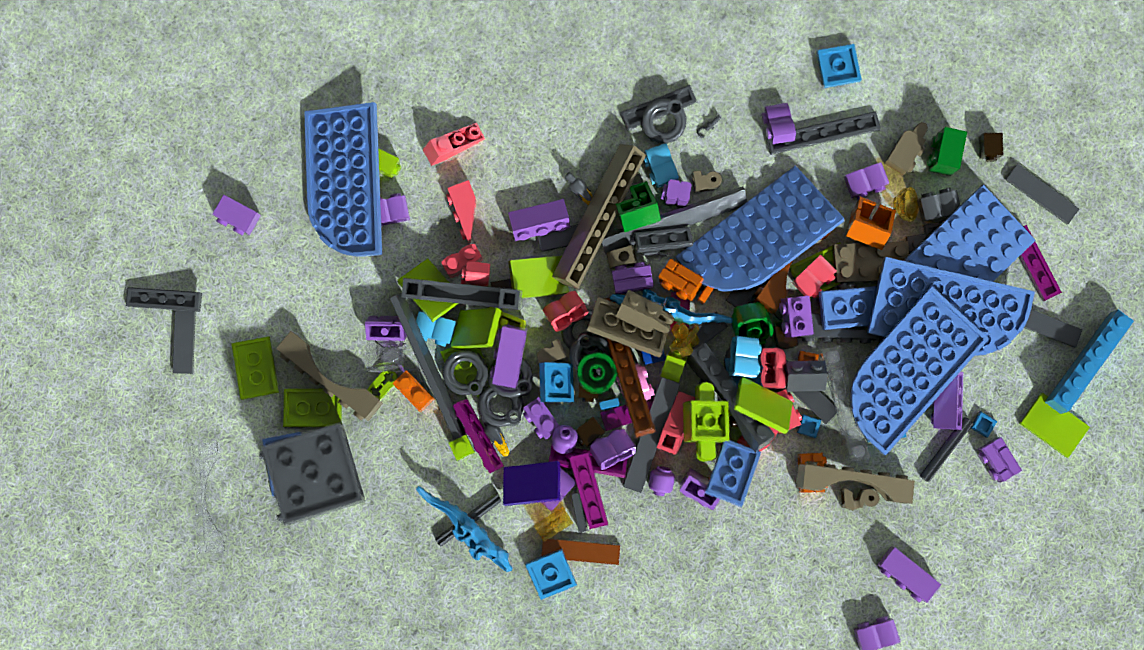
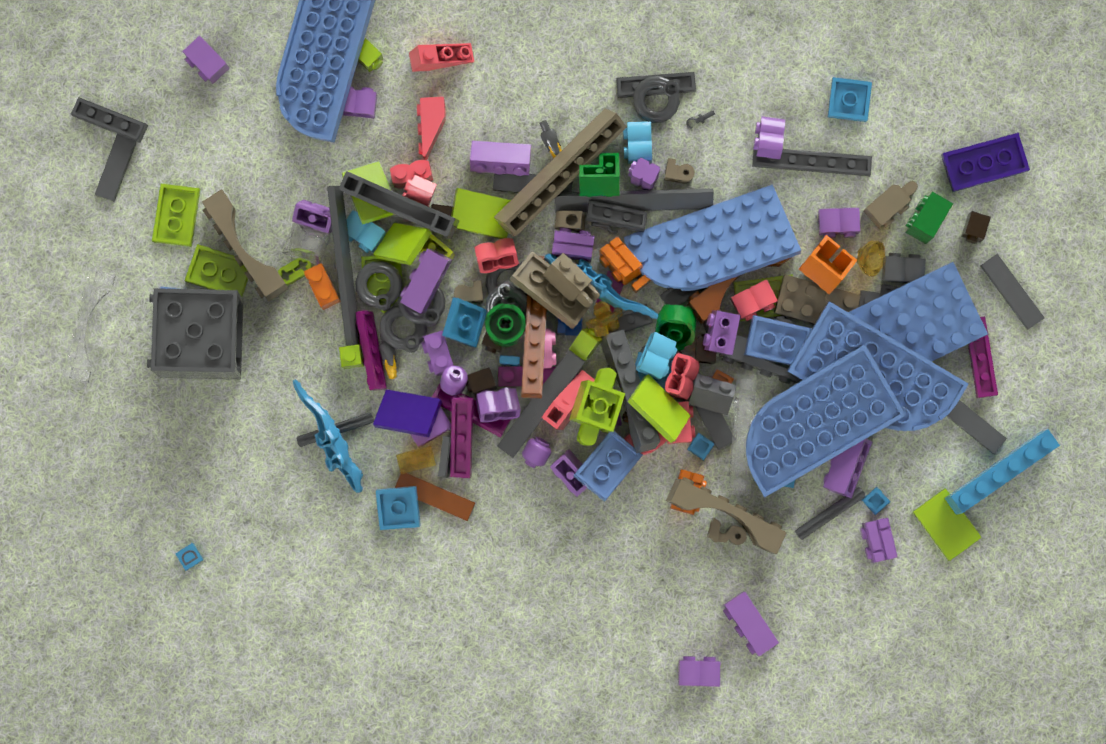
camera: 25 degrees right, 0 degrees up
(979, 84) = (985, 162): none -> dark purple plate

